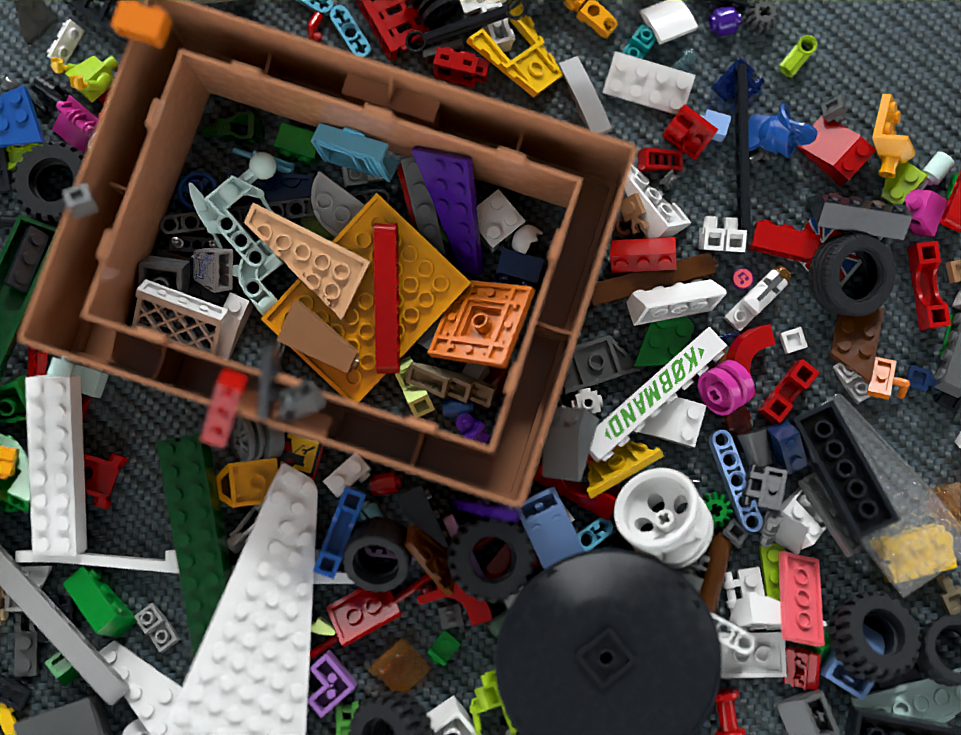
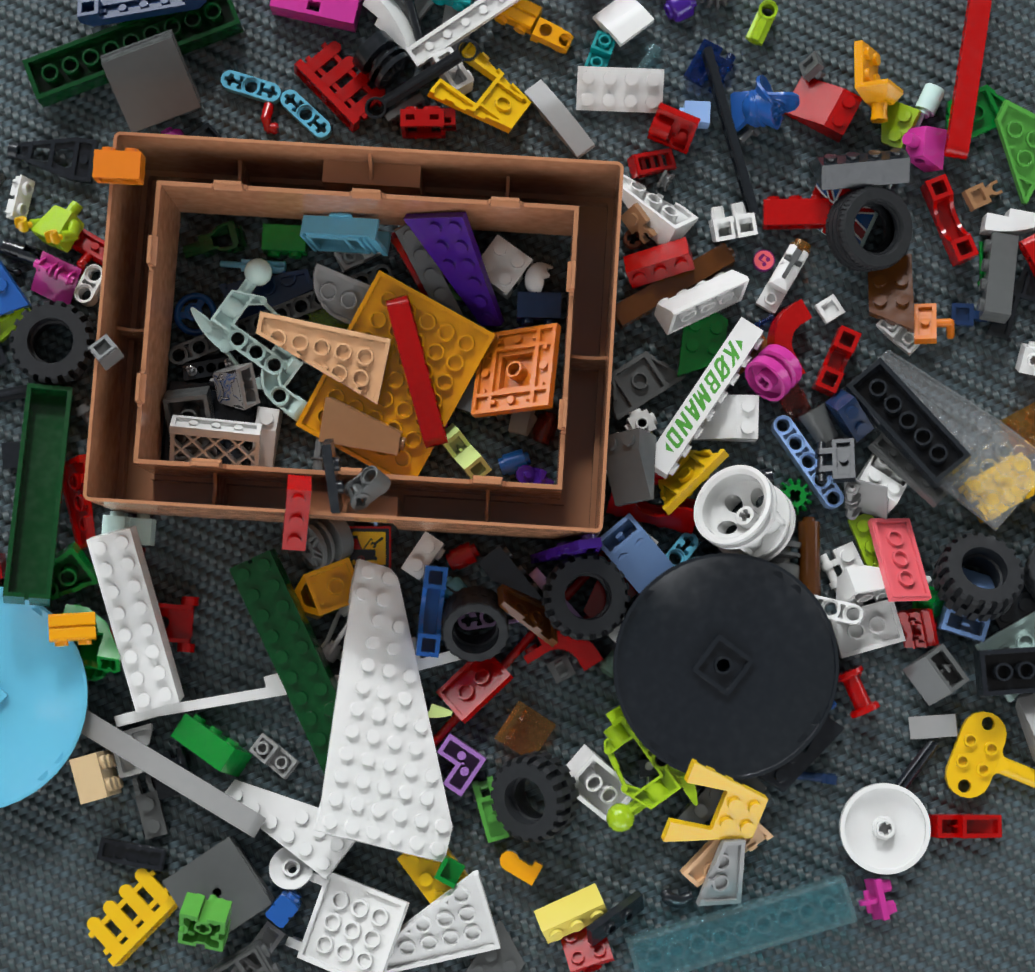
camera: 10 degrees left, 0 degrees up
(26, 259) = (47, 425): black plate -> none
(62, 669) = (193, 817): green panel -> none
(443, 648) = (562, 701): green bracket -> none
(451, 383) = (501, 439): dark tan slope -> none
(735, 532) = (819, 513): dark grey slope -> none

